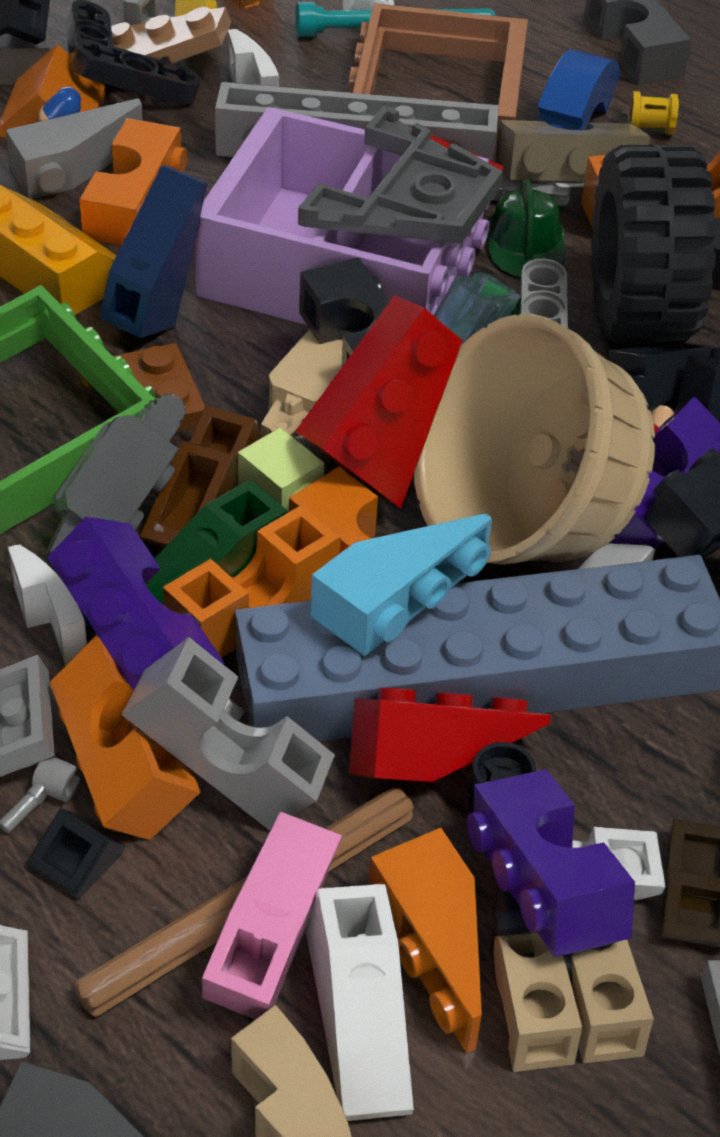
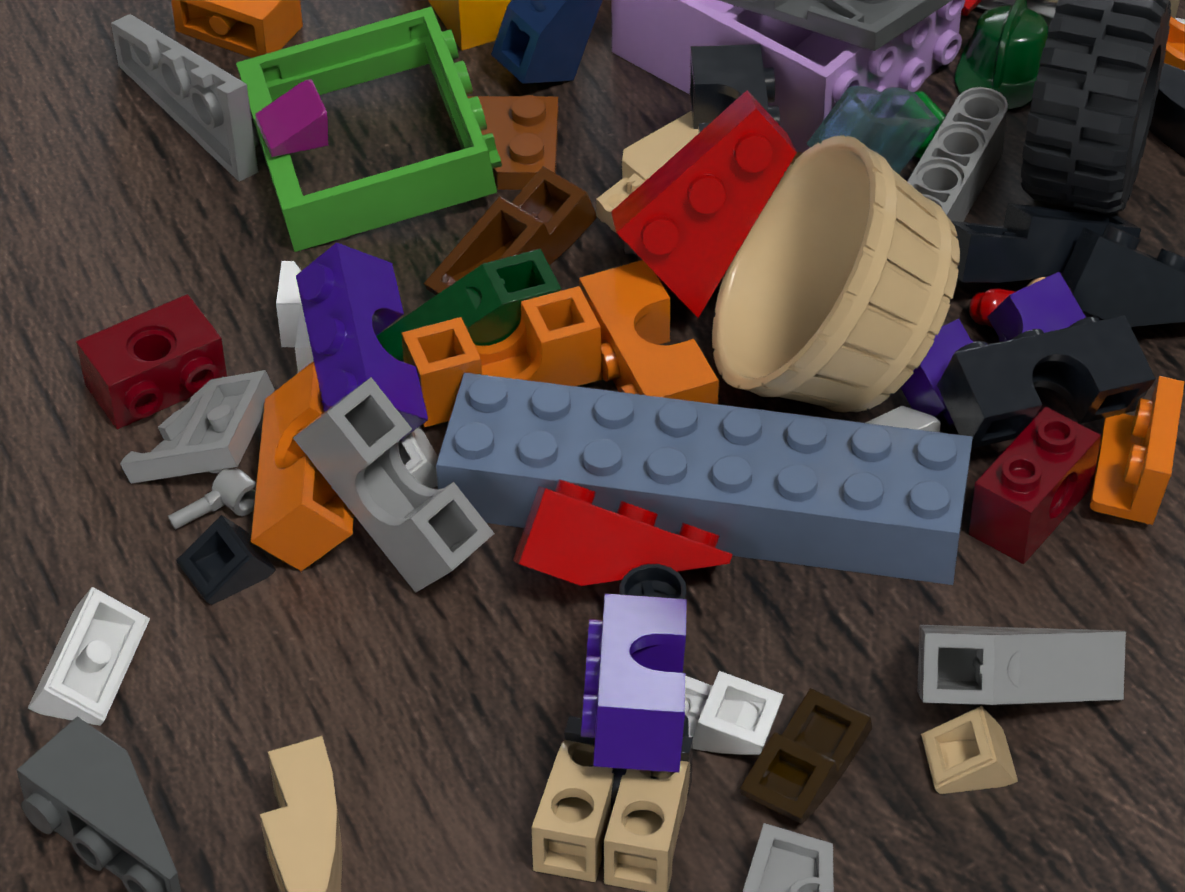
camera: 25 degrees right, 0 degrees up
(120, 468) = (424, 209): dark grey hinge -> none
(203, 925) = (361, 645): medium nougat axle -> none
(269, 917) = (358, 660): bright pink slope -> none
(279, 466) = (587, 245): yellowish green brick -> none
(361, 1000) = (409, 758): white slope -> none
(390, 579) = (623, 376): medium azure slope -> none
(436, 927) = (525, 715): orange slope -> none

